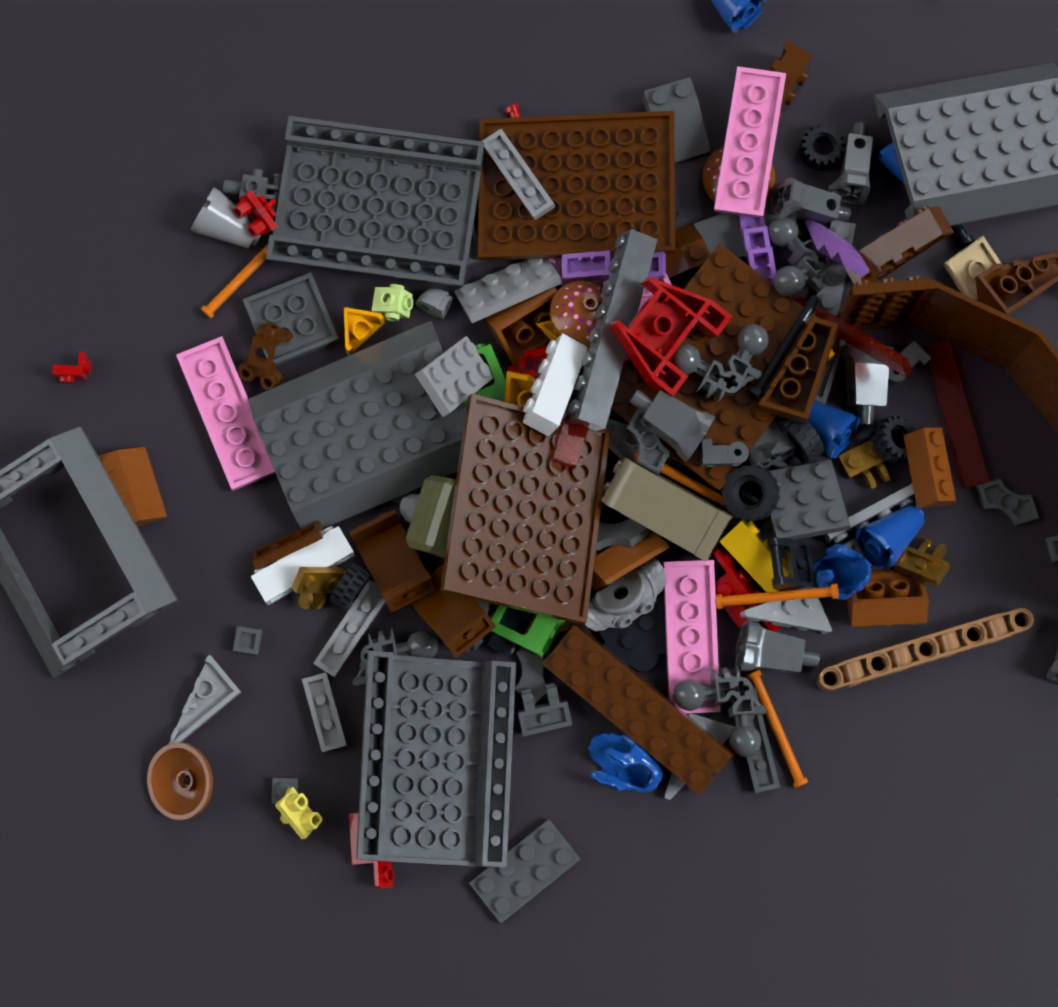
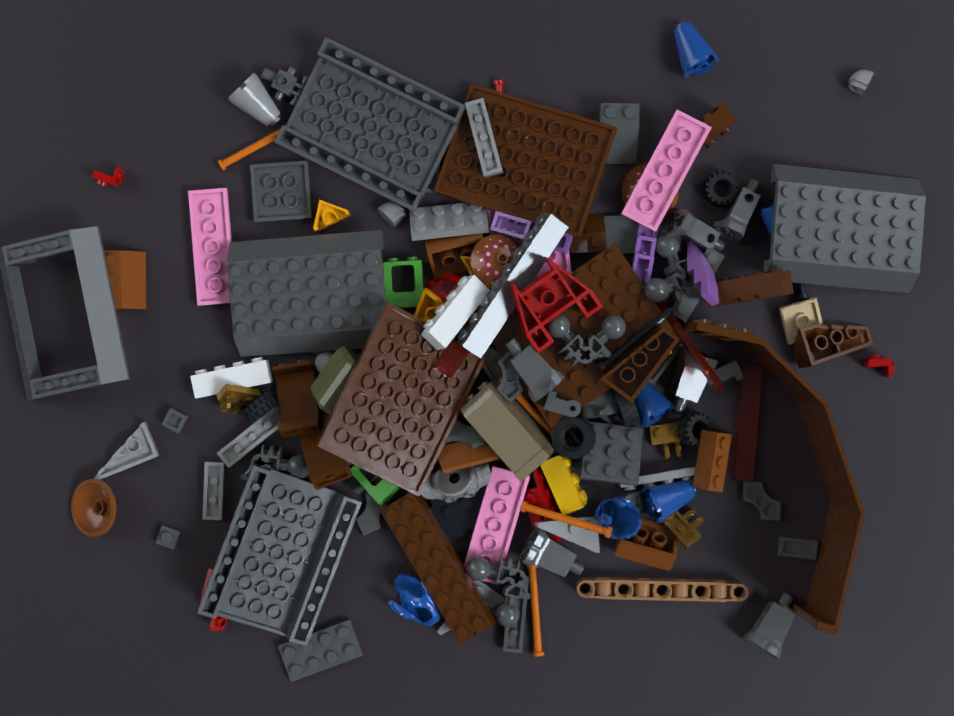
camera: 25 degrees right, 10 degrees up
(260, 211) = (276, 96): red hips -> none
(268, 337) = (257, 203): reddish brown piece -> none
(287, 545) = (224, 361): reddish brown tile -> none
(297, 813) = (171, 558): light yellow hips -> none
(392, 302) = (359, 204): yellowish green brick -> none
(454, 376) = (382, 281): light grey plate -> none
(544, 716) = (370, 546): dark grey plate -> none
(798, 562) = (590, 500): black plate -> none

